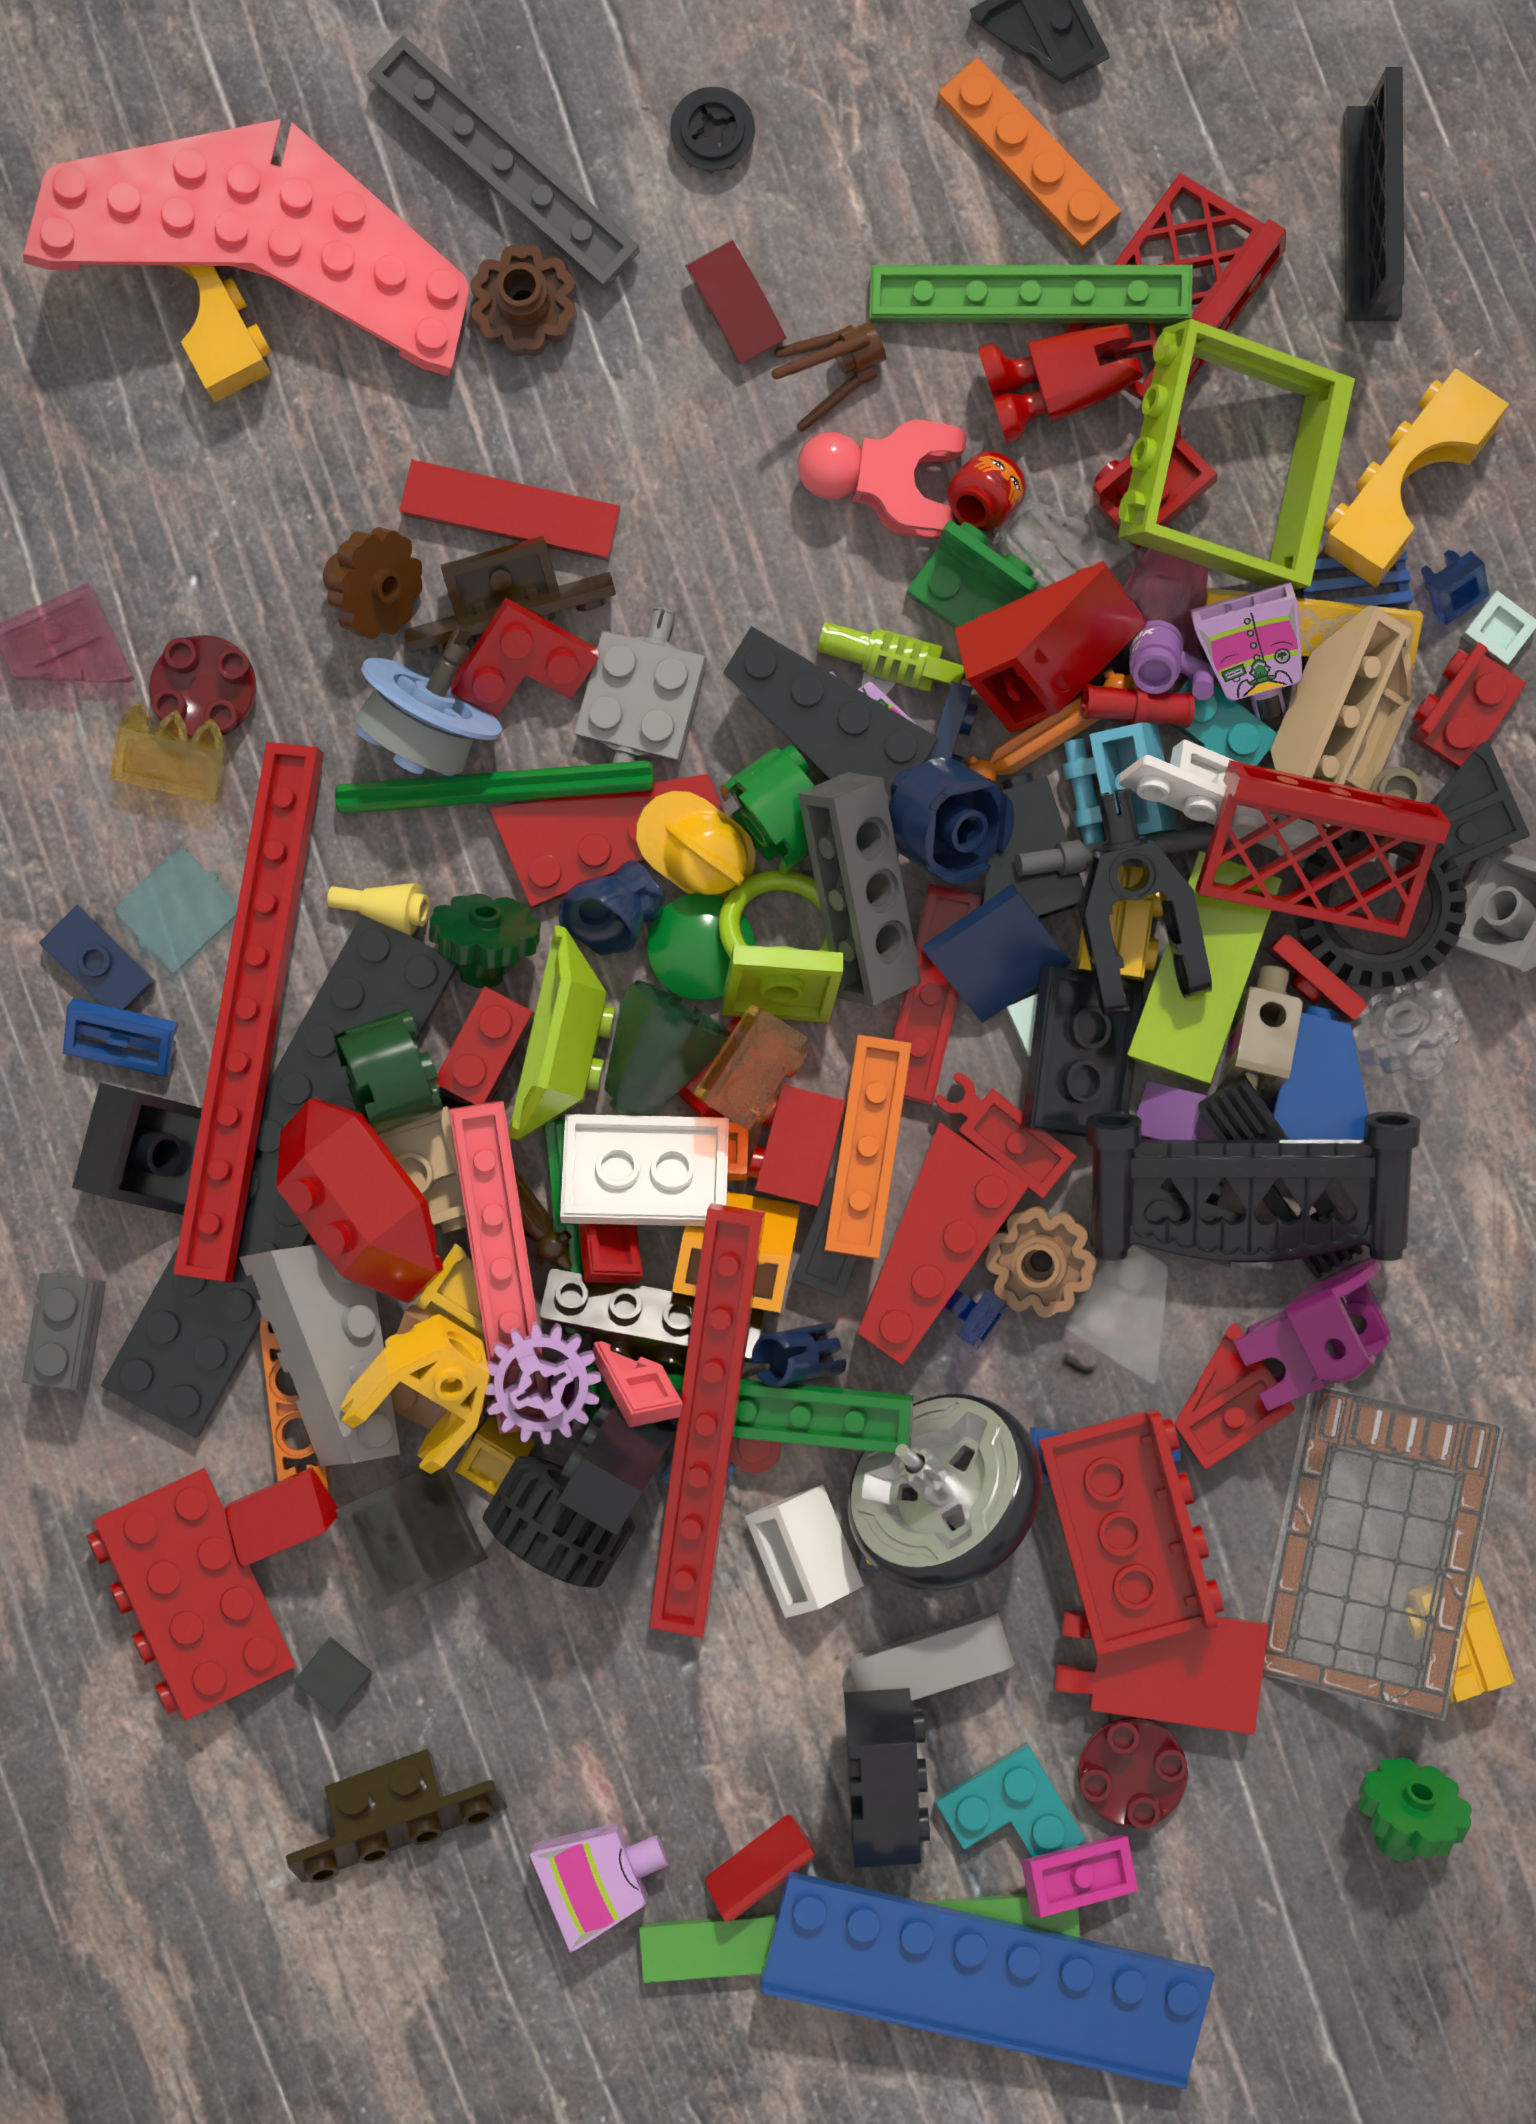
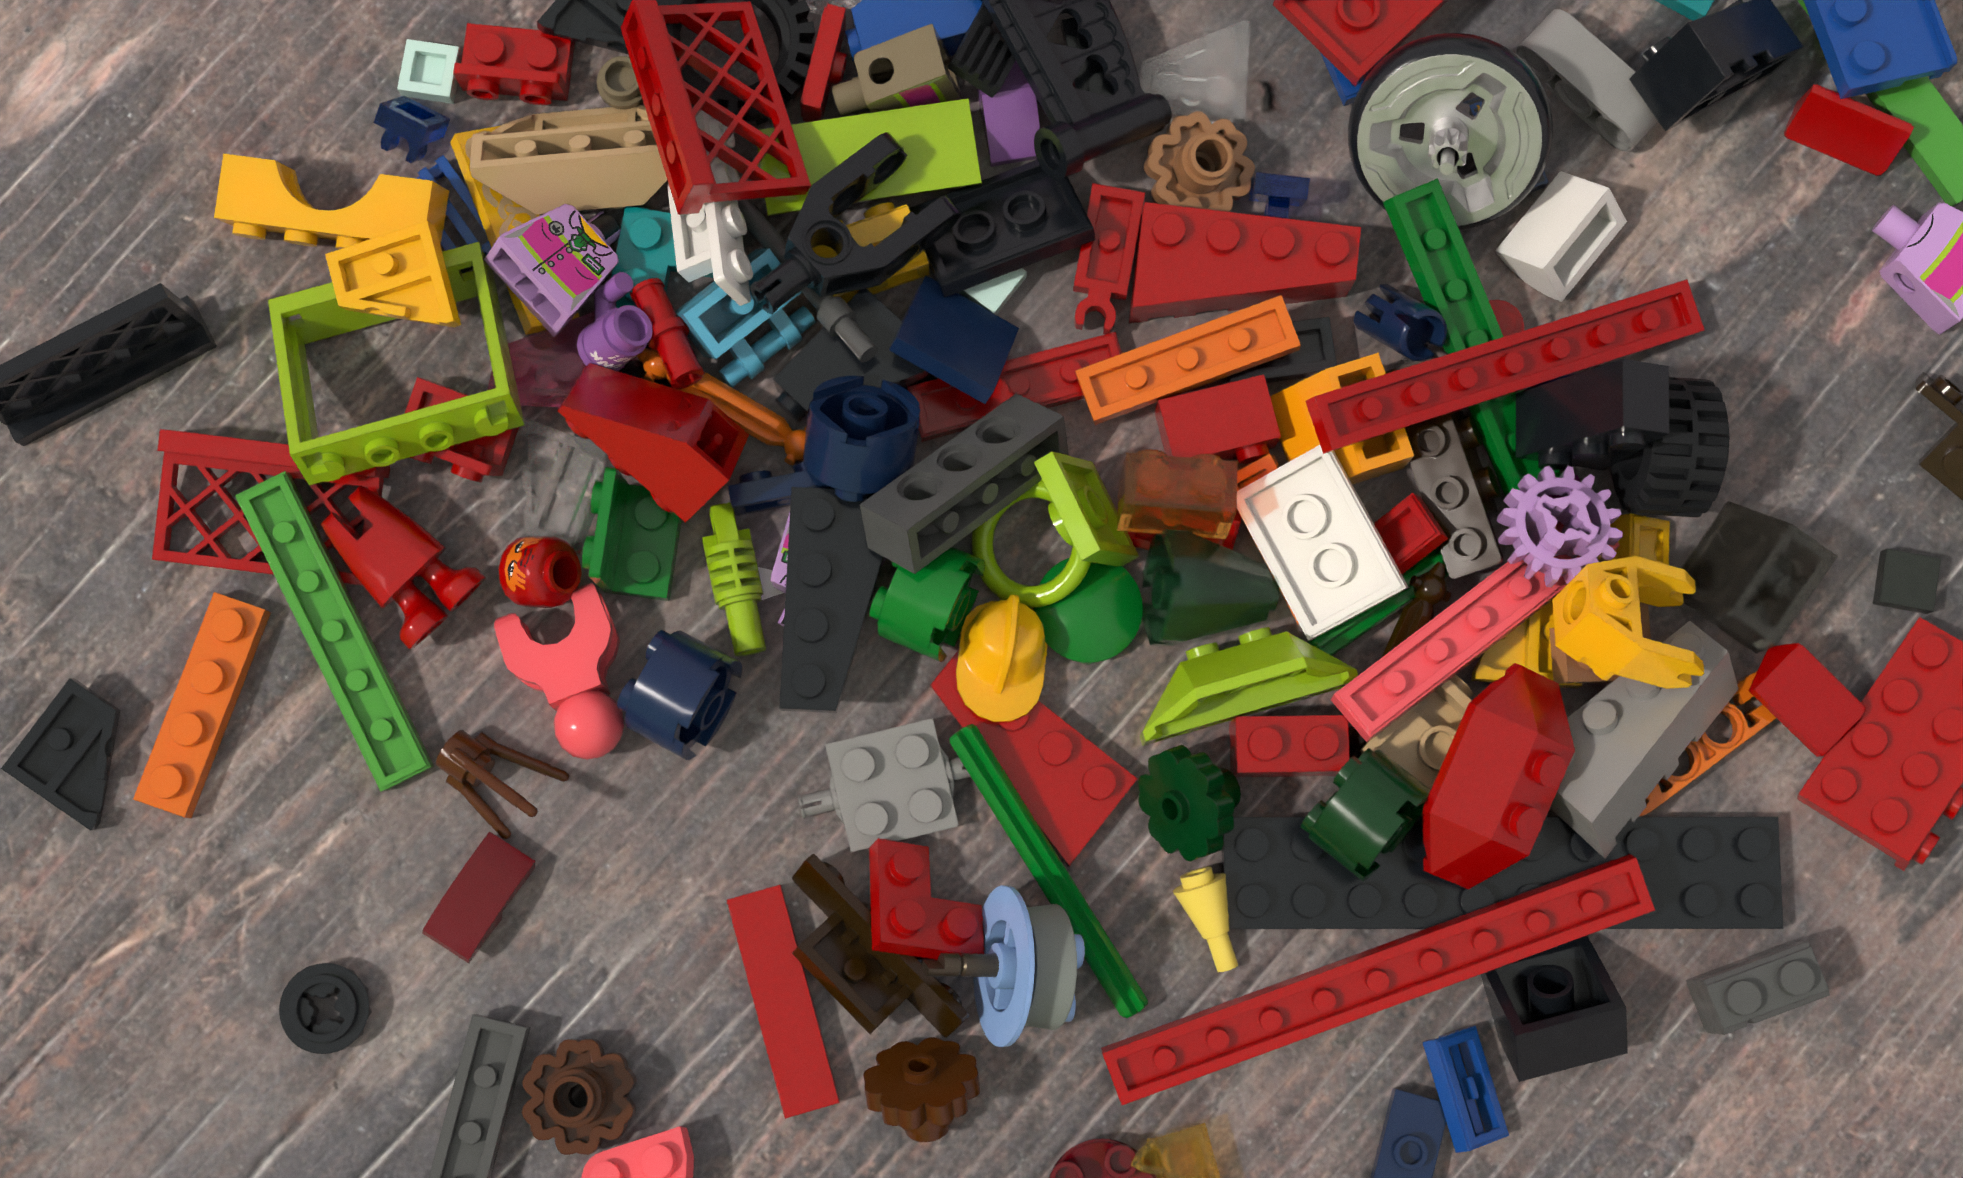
camera: 120 degrees left, 5 degrees down
(177, 909) = (1317, 1104): clear light blue piece -> none
(611, 909) = (1101, 700): dark blue hair -> none
(638, 1387) = (1514, 439): coral tile -> none
(813, 554) = (680, 693): none -> dark blue brick
(1309, 493) = (396, 277): none -> yellow wing

